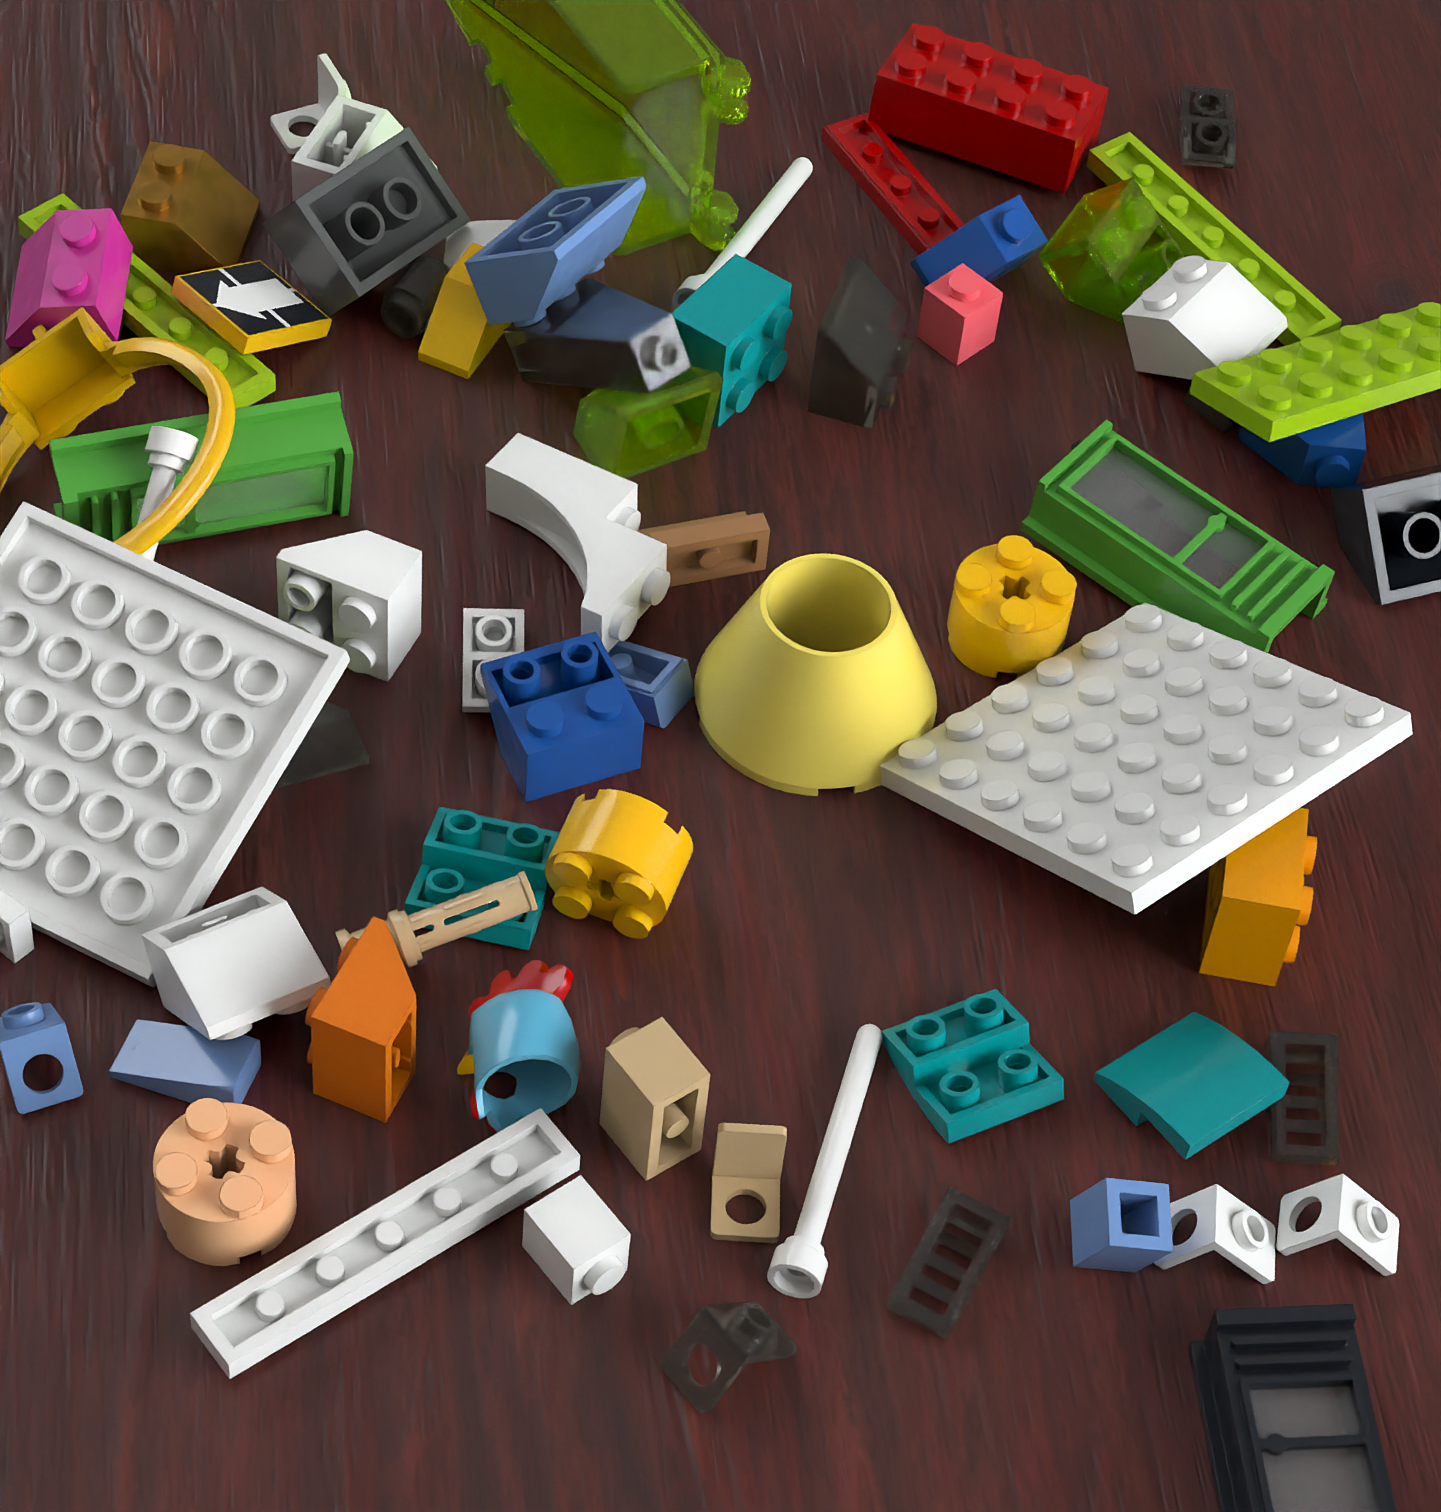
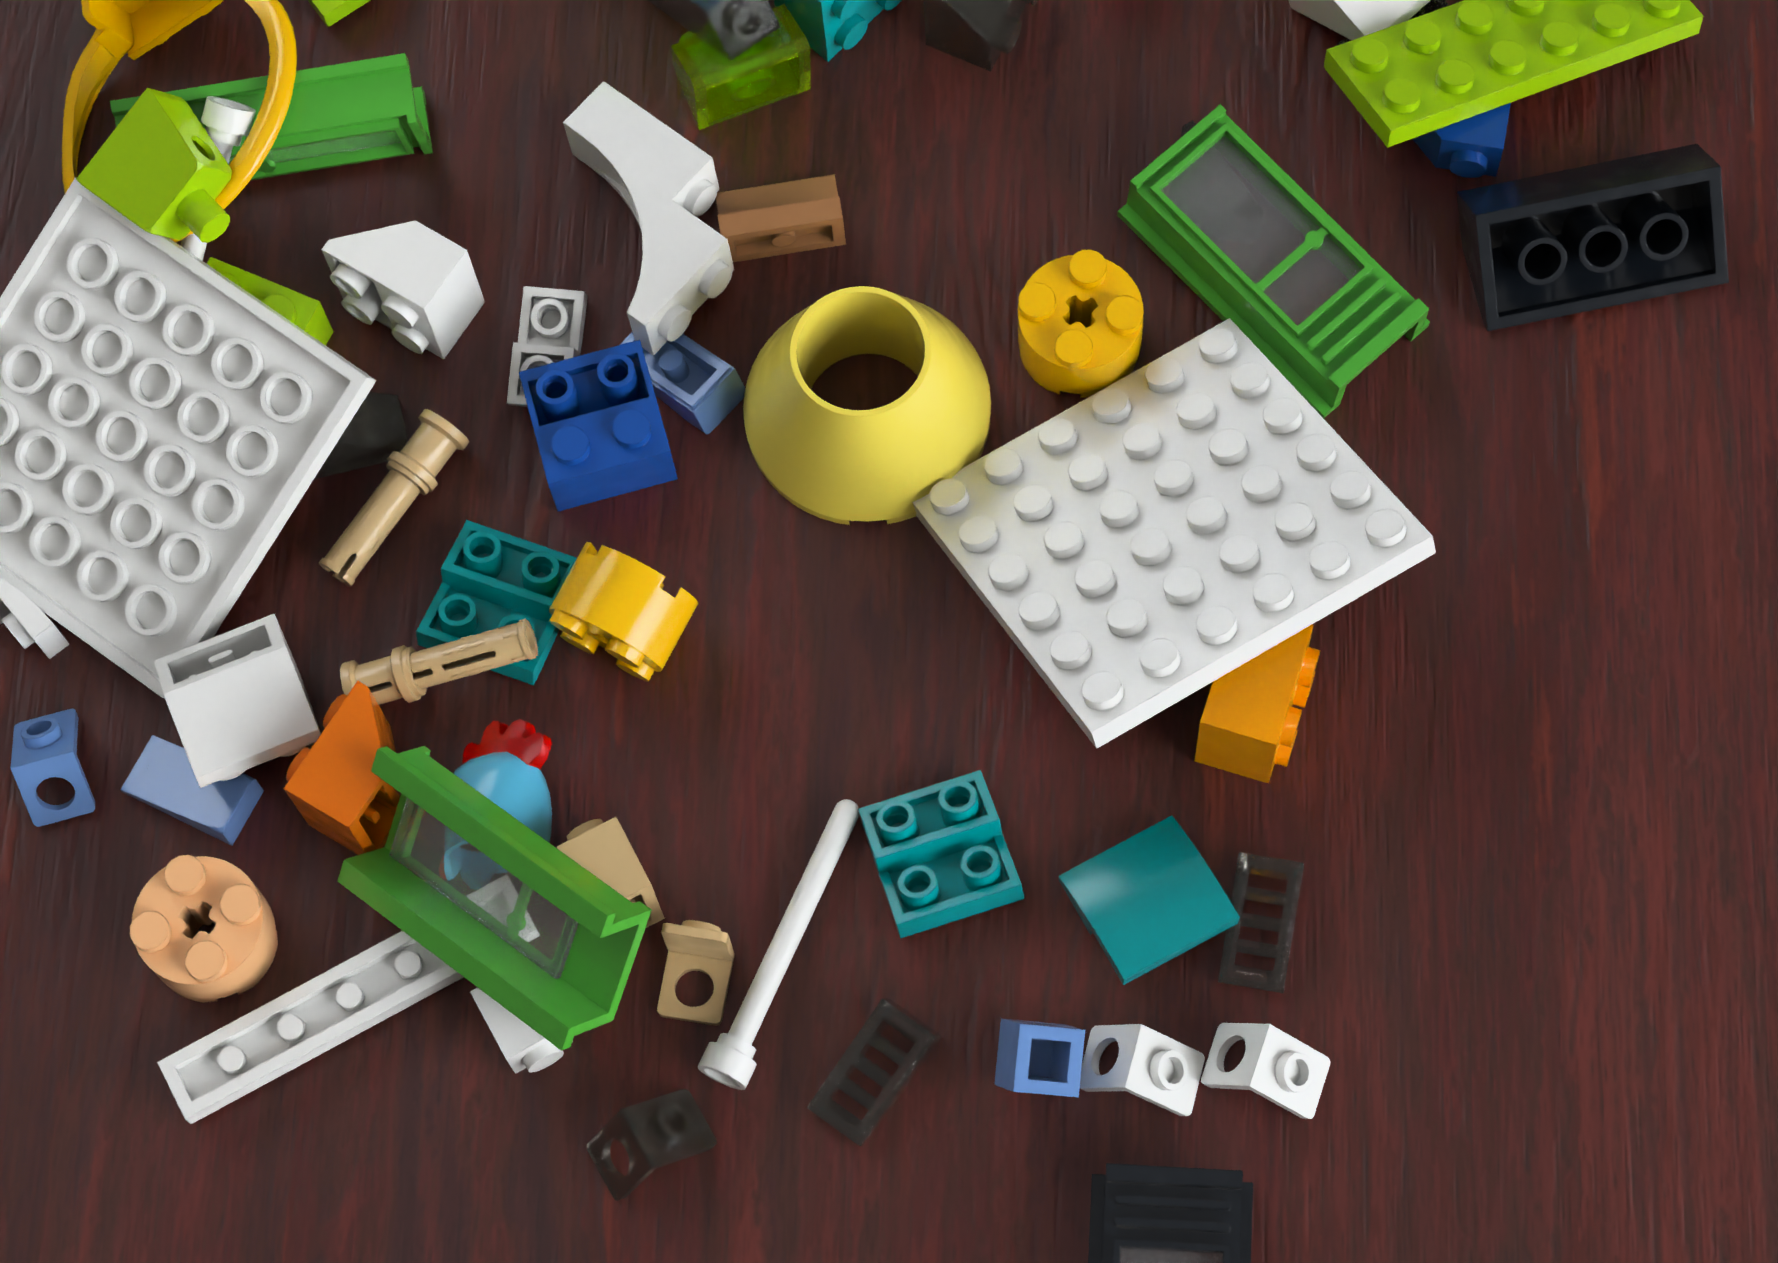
camera: 20 degrees right, 20 degrees up
(113, 487) = (162, 170): none -> lime torso
(375, 771) = (409, 474): none -> tan pin
(553, 1102) = (498, 901): none -> bright green piece

